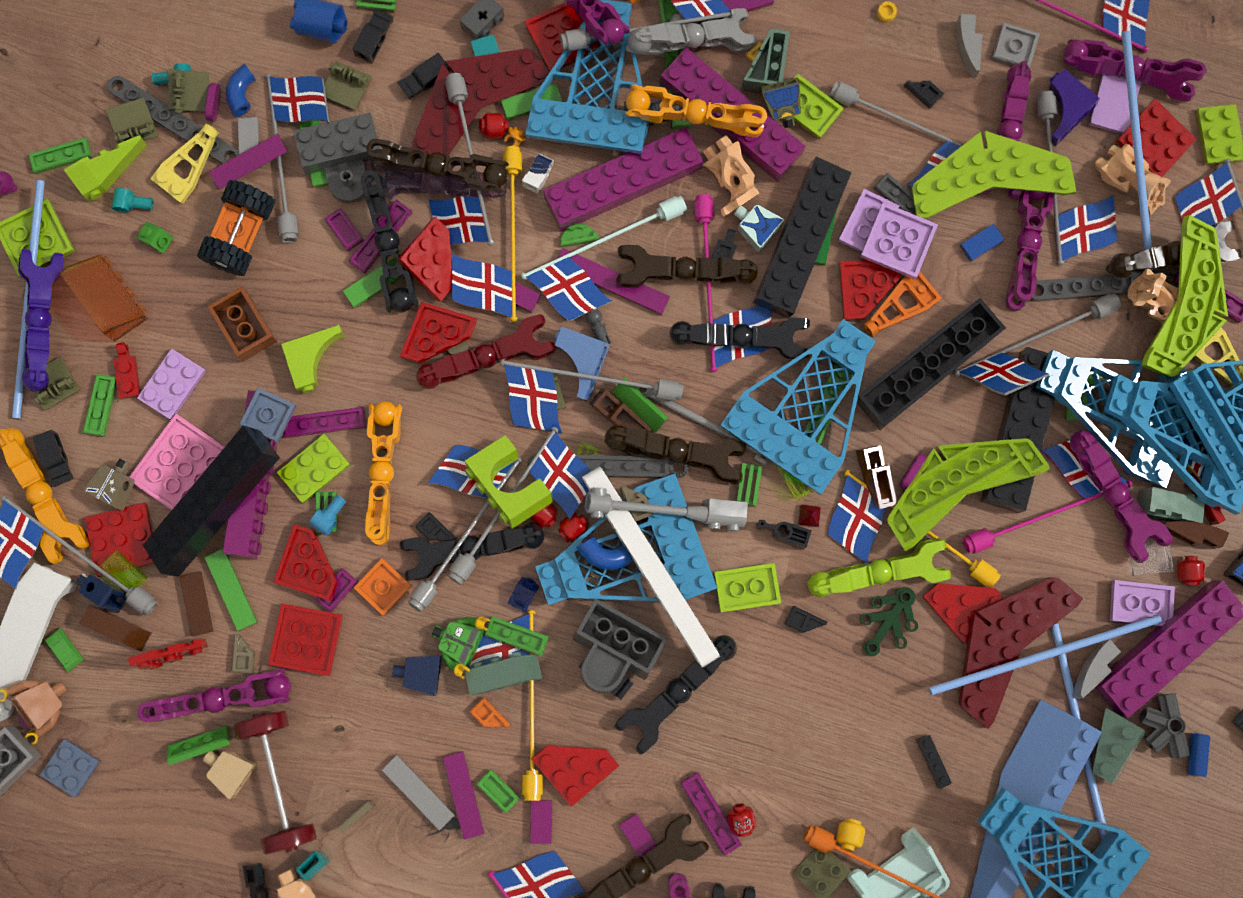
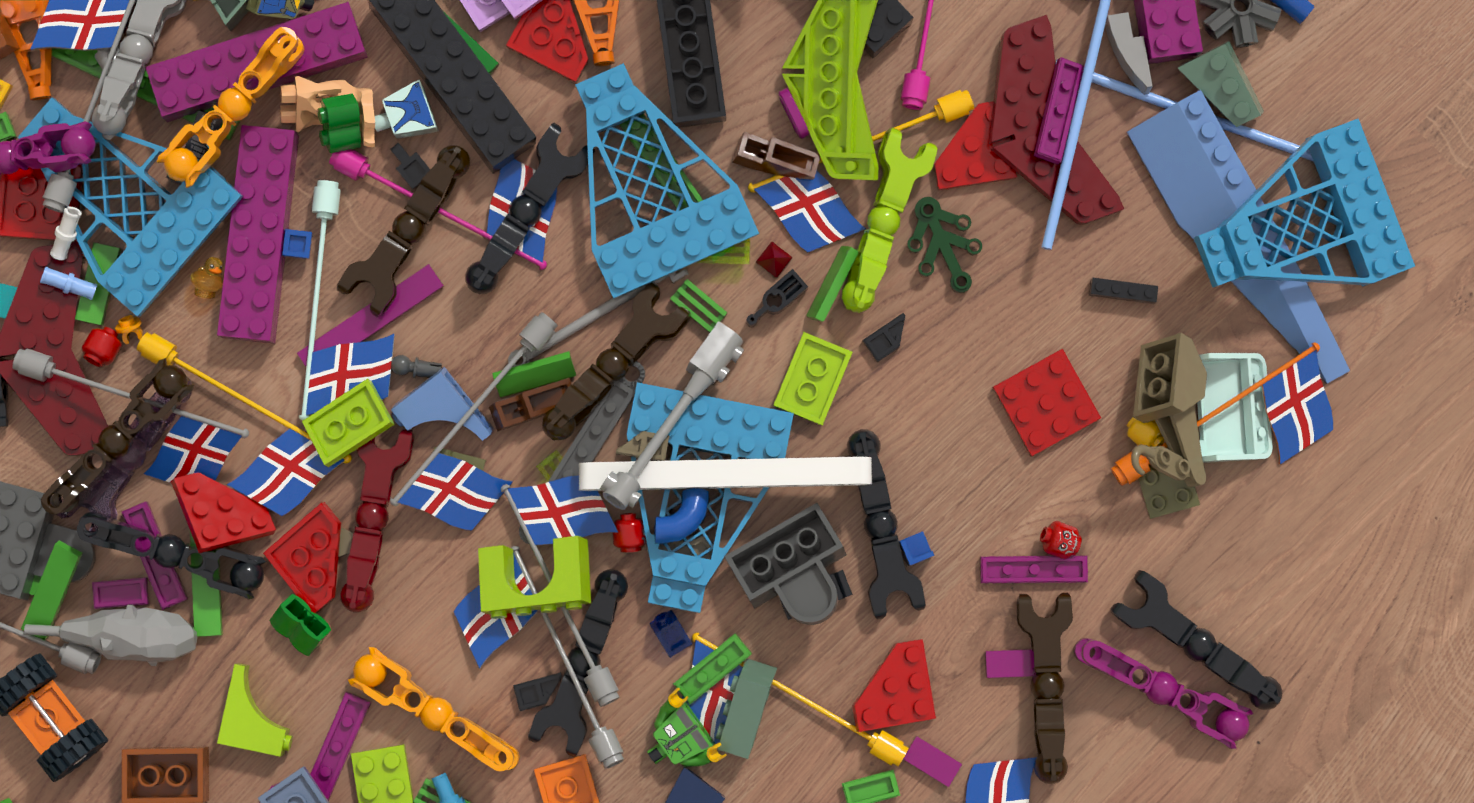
camera: 55 degrees left, 5 degrees up
(319, 184) = (53, 586): none -> bright green tile
(319, 247) = (127, 634): none -> light grey piece
(388, 351) = (300, 625): none -> green brick
(488, 715) = (781, 751): orange tile -> none
(521, 81) = (68, 283): none -> light blue pin
(536, 304) = (348, 422): none -> lime plate
(538, 173) = (190, 328): white leg -> none
(546, 516) = (598, 557): red head -> none
(551, 59) = (65, 233): none -> white pin
(575, 164) = (207, 278): none -> clear yellow animal
(578, 234) = (291, 325): bright green tile -> none
(632, 206) = (297, 244): none -> blue tile
(676, 724) = (915, 548): none -> blue panel
(725, 186) = (340, 123): none -> green brick
(818, 563) = (832, 283): none -> bright green tile
(827, 754) = (1046, 402): none -> red plate
(886, 832) = (1167, 388): none -> dark tan slope
(1026, 644) = (1059, 110): none -> magenta tile

